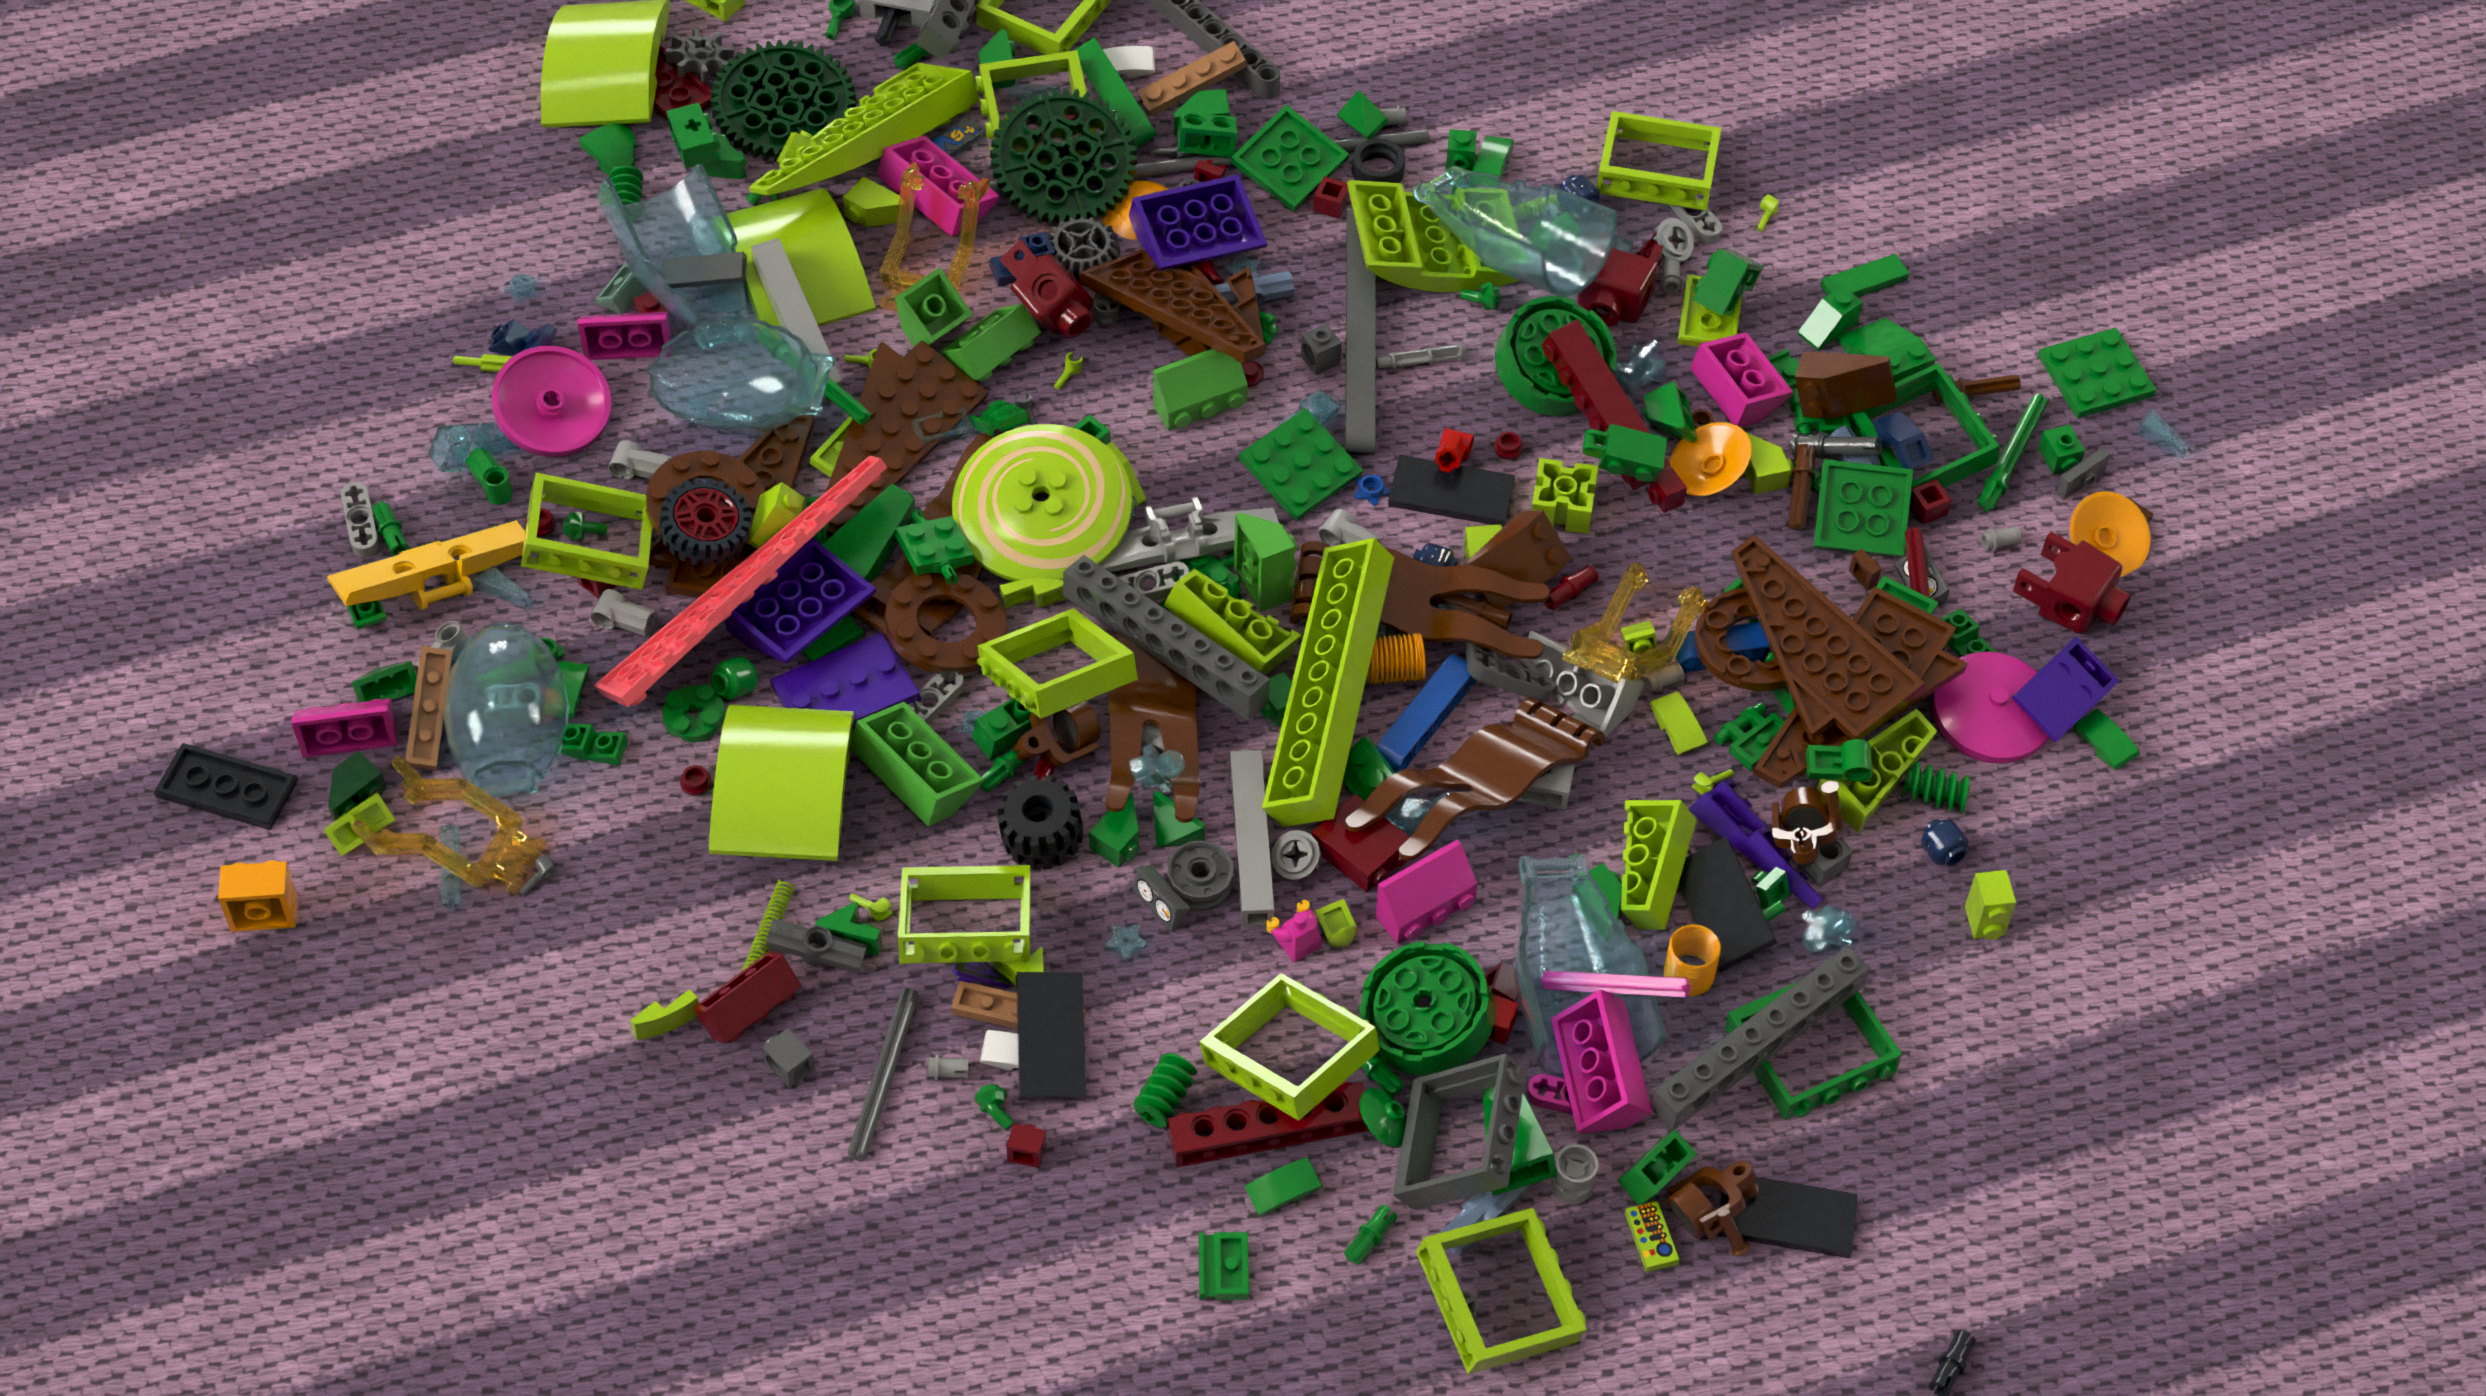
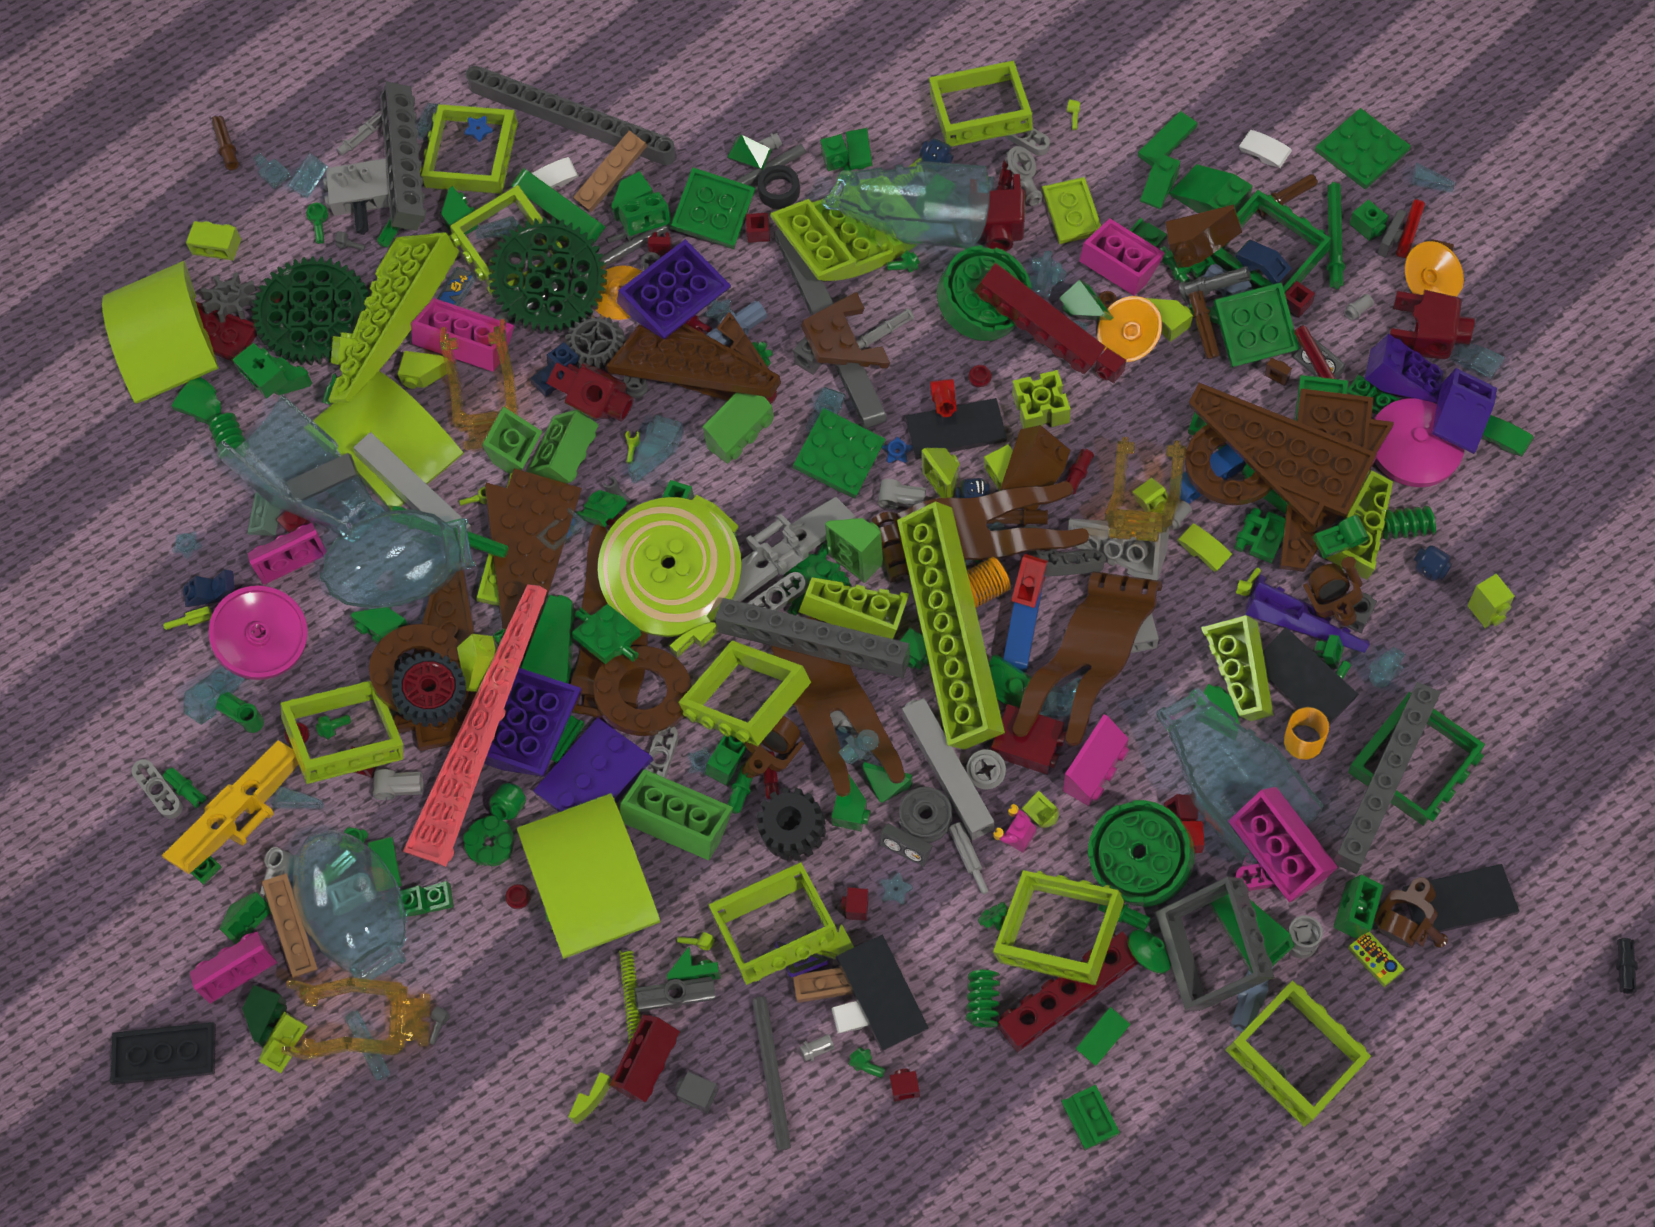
camera: 15 degrees left, 10 degrees up
(258, 896) = (236, 1138): light orange brick -> none
(632, 460) = (342, 654): light grey piece -> none
(686, 438) = (377, 622): none -> green slope
(855, 44) = (342, 241): none -> dark grey hand
(1071, 936) = (855, 903): none -> dark red plate
(1097, 380) = (660, 443): none -> clear light blue slope
(1222, 1012) = (993, 916): none -> green plant
(1228, 936) = (968, 854): none -> light grey axle
(1353, 339) = (833, 338): none -> reddish brown wing
(1370, 1235) = (1181, 1046): green axle -> none
(1409, 522) = (940, 470): none -> lime slope
(1447, 671) = (1029, 580): none -> red slope
(1616, 983) = (1269, 780): axle -> none
(1627, 451) = (1075, 351): green brick -> none
(1726, 280) = (1078, 182): green brick -> none
(1977, 328) = (1266, 148): none -> white slope
(2016, 623) = (1403, 371): none -> dark purple slope
(2113, 474) = (1410, 228): none -> red axle
(2118, 646) = (1478, 358): none -> clear light blue slope

